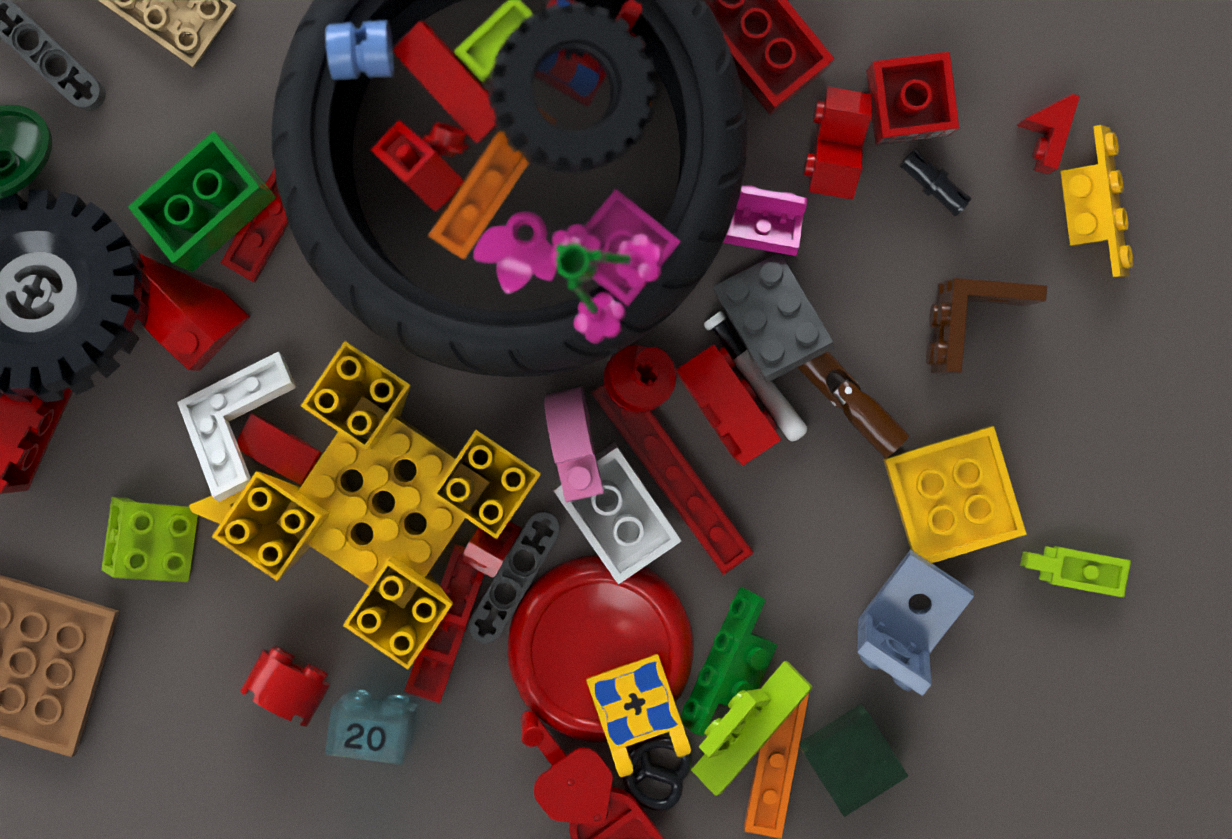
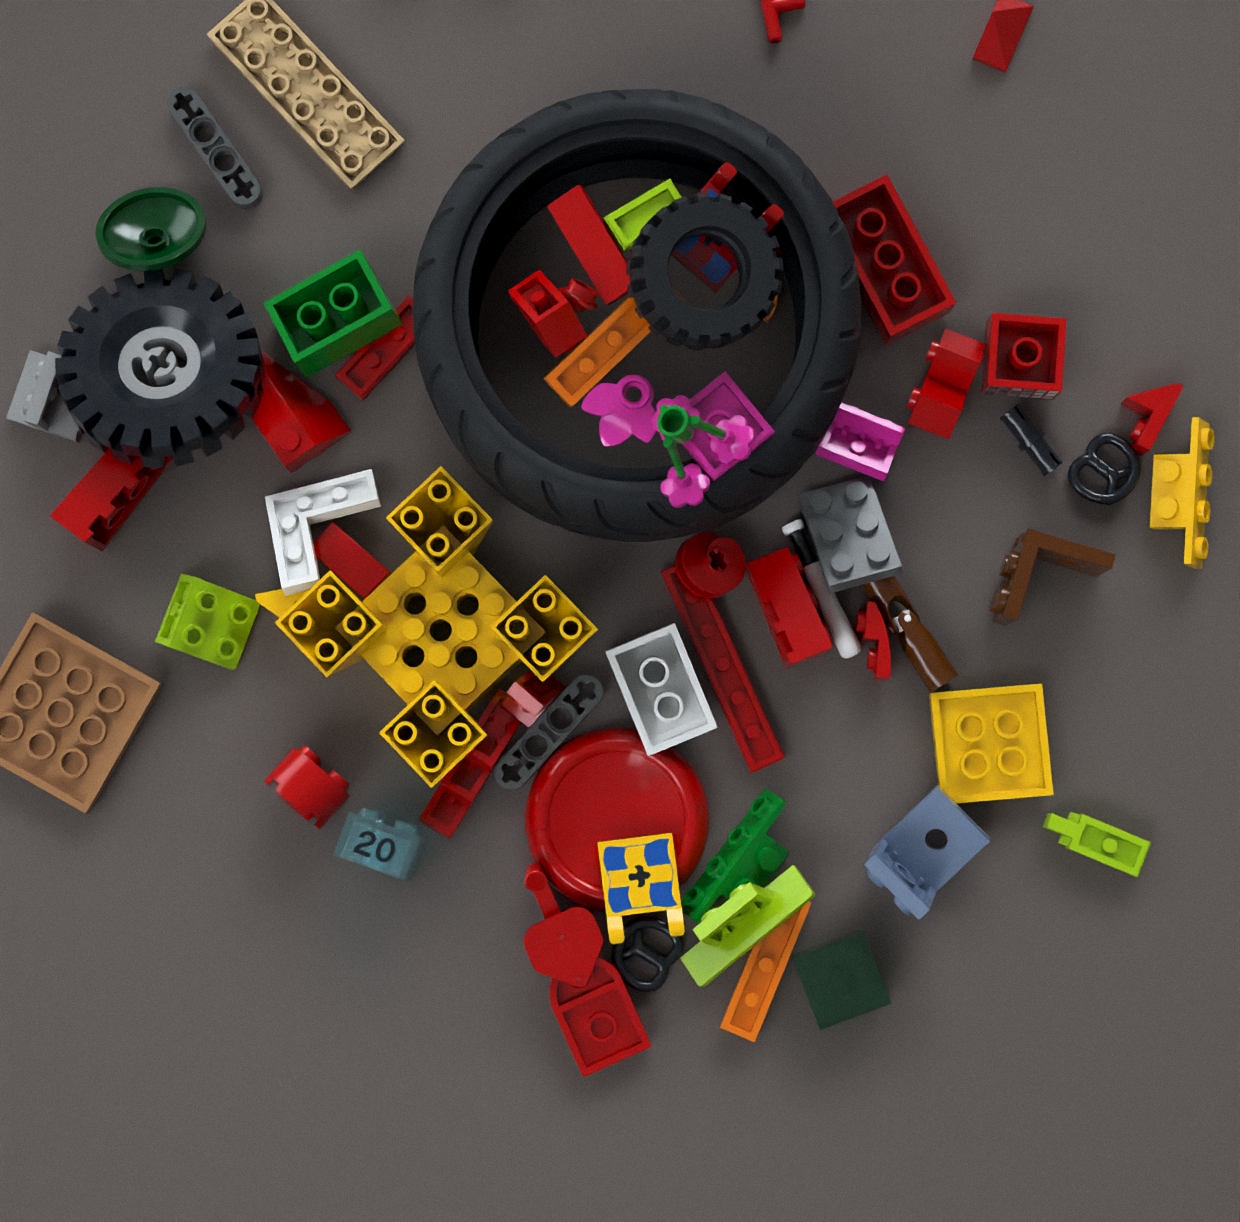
camera: 20 degrees right, 5 degrees down
(360, 50) = (518, 199): medium blue wheel -> none
(572, 443) = (633, 613): bright pink arch -> none
(815, 406) = (873, 629): none -> red slope
(1016, 197) = (1106, 470): none -> black piece

